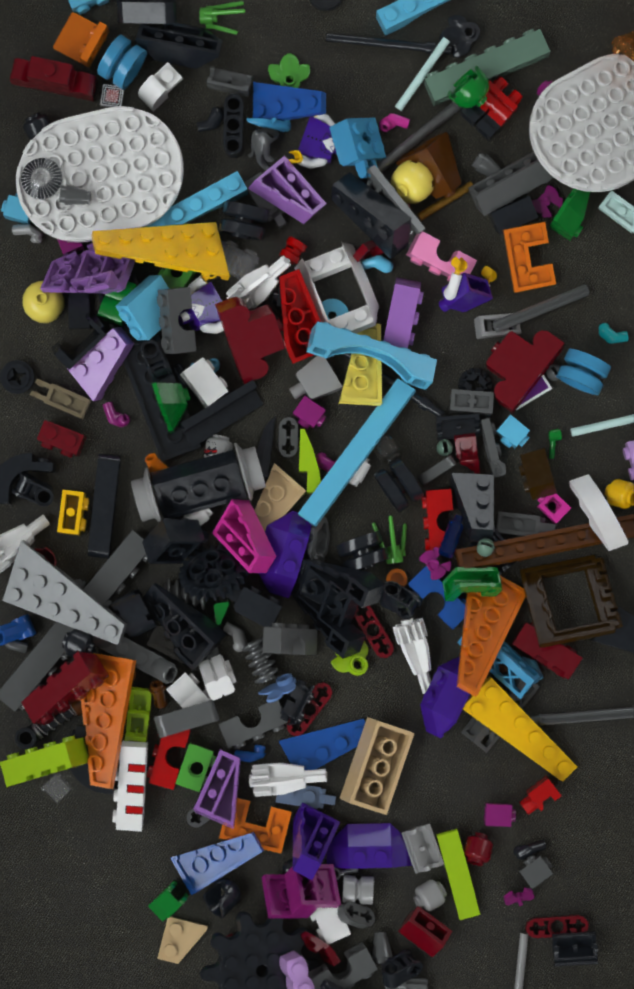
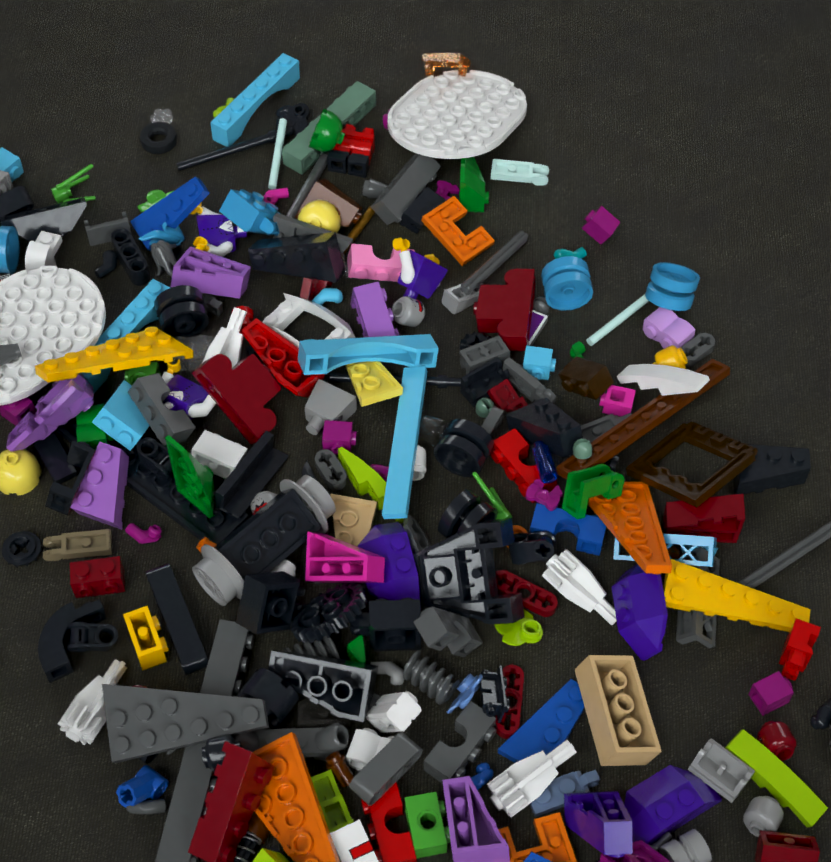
camera: 30 degrees left, 30 degrees down
(435, 321) = (408, 311): none -> light grey head

